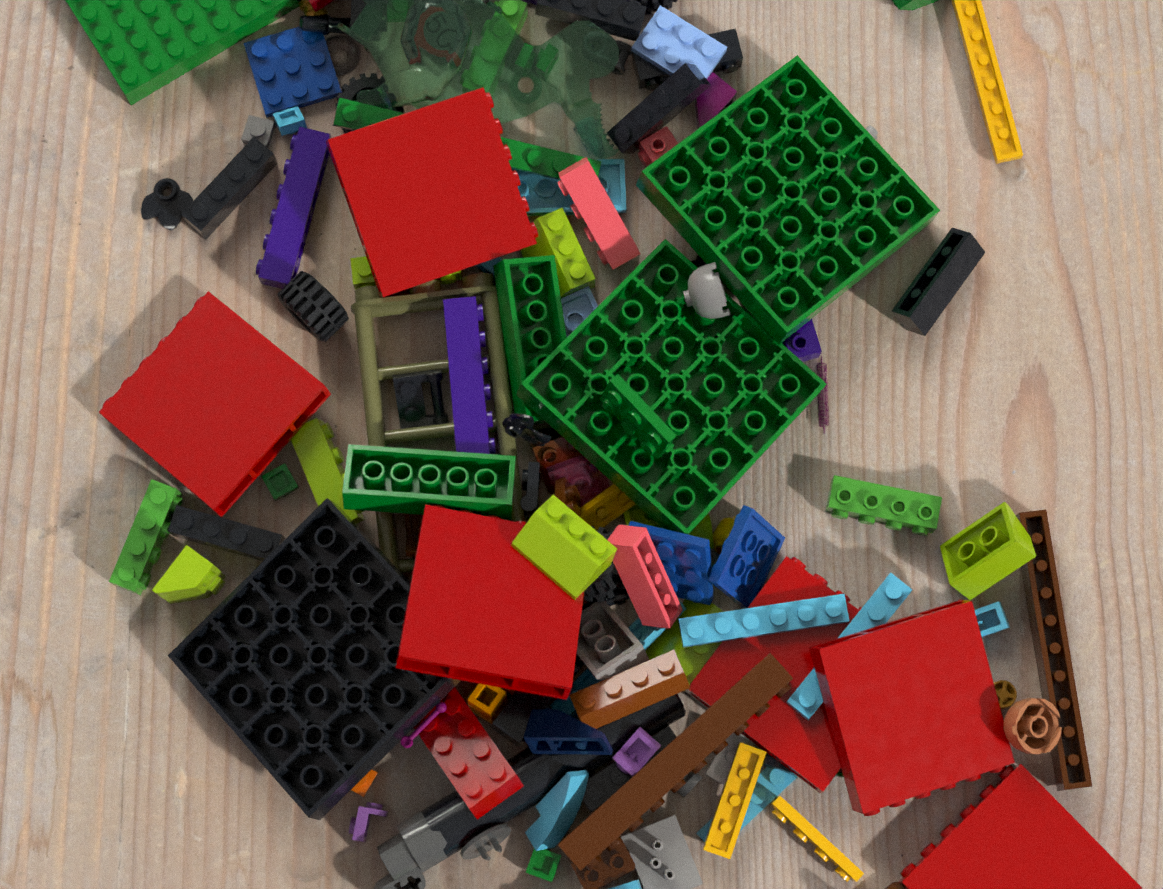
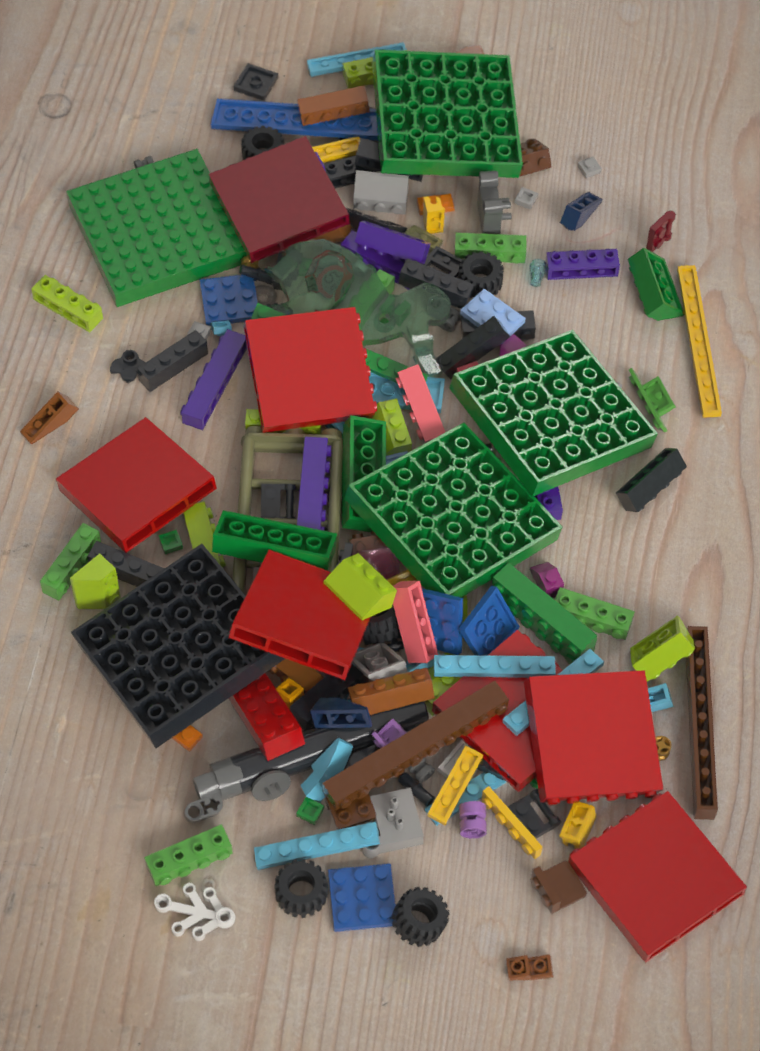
camera: 10 degrees right, 20 degrees down
(57, 113) = (67, 303): none -> lime brick
(70, 309) = (50, 417): none -> dark orange slope
(313, 306) = (215, 433): black tyre -> none
(360, 824) = (184, 764): medium lavender bracket -> none
(407, 741) = (227, 702): magenta hinge -> none
(521, 426) = (344, 521): black plate -> none
(637, 417) = (425, 512): green plate -> none
(684, 810) = (417, 789): none -> black axle
(706, 293) = (486, 453): light grey cylinder -> none
(762, 834) = (472, 819): none -> medium lavender wheel
(813, 458) = (547, 578): none -> magenta slope
(817, 524) = (544, 615): none -> green brick
(824, 395) = (558, 541): magenta piece -> none
(837, 826) = (529, 818): none -> black plate
(906, 830) = (578, 824): none -> yellow hinge
(926, 142) = (656, 397): none -> bright green bracket
(1032, 726) = (678, 761): nougat cylinder -> none

